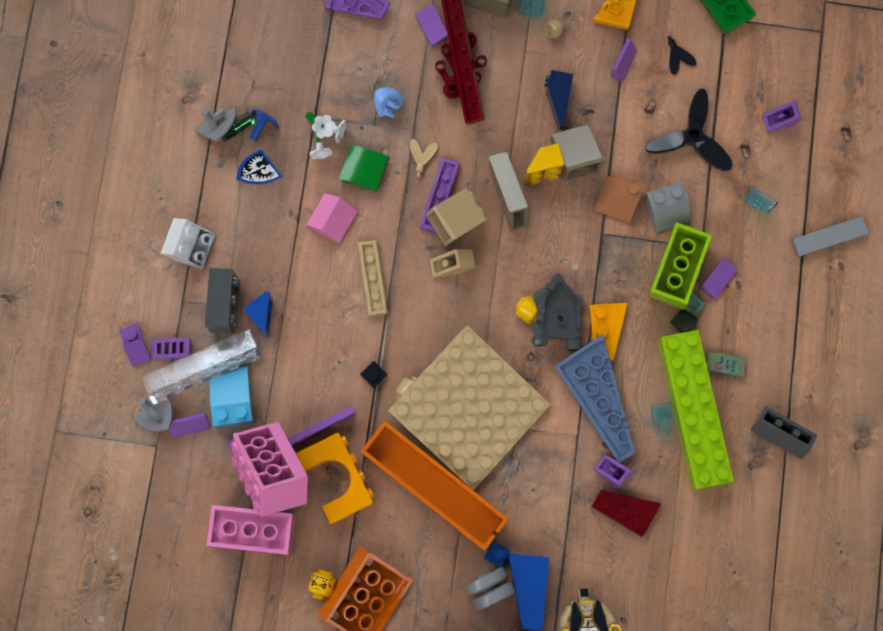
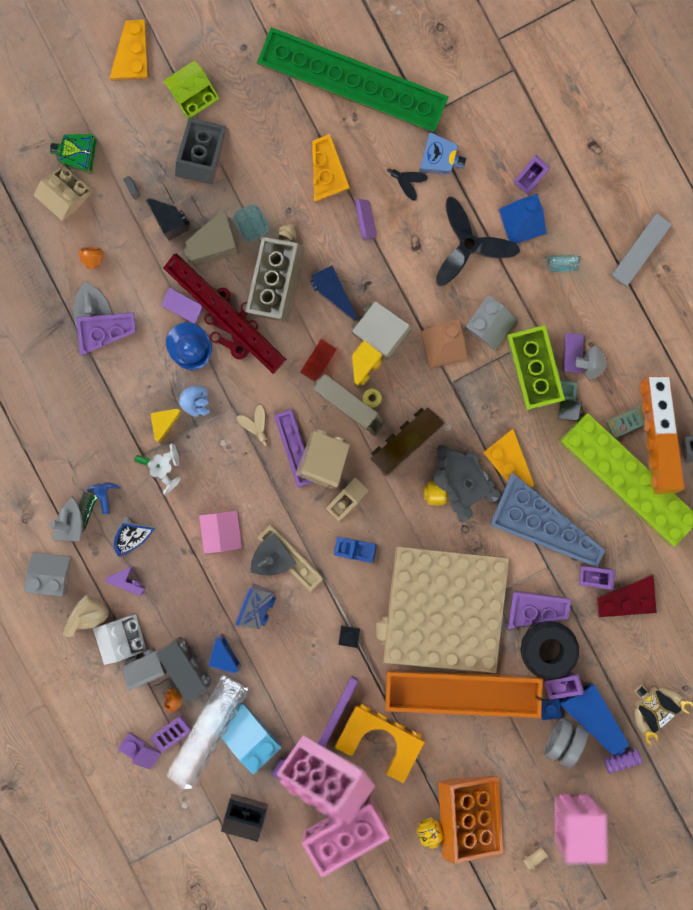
camera: 30 degrees left, 10 degrees up
(154, 416) = (200, 798): light grey shield -> none
(170, 153) = (47, 574): none -> light grey slope
(176, 202) = (85, 615): none -> tan hair
(177, 459) = (244, 817): none -> black slope
(188, 279) = (142, 669): none -> light grey slope
(189, 425) = (231, 784): medium lavender slope -> none
(193, 322) = (172, 700): none -> orange plate
(226, 197) = (122, 581): none -> medium lavender slope
(316, 291) = (255, 607): none -> blue slope
(351, 101) = (163, 421): none -> yellow slope
(357, 266) = (271, 557): none -> dark grey shield
(364, 168) = (216, 471): green slope -> none
(414, 58) = (189, 346): none -> blue hat
(429, 308) = (355, 549): none -> blue slope
(509, 141) = (318, 360): none -> clear red slope
(520, 54) = (275, 279): none -> dark tan slope
(521, 541) = (564, 686): none -> medium lavender slope
(532, 194) = (372, 392): none -> light yellow plate
(535, 251) = (407, 441): none -> dark brown slope
(544, 461) = (535, 608): none -> medium lavender wing
(545, 488) = (562, 663): none -> black tyre
(662, 415) = (605, 503): clear light blue plate -> none
(717, 54) = (440, 156): none -> medium blue torso
(731, 297) = (593, 364): none -> light grey piece
(747, 390) = (661, 435): none -> orange brick
(751, 146) = (523, 219): none -> blue slope

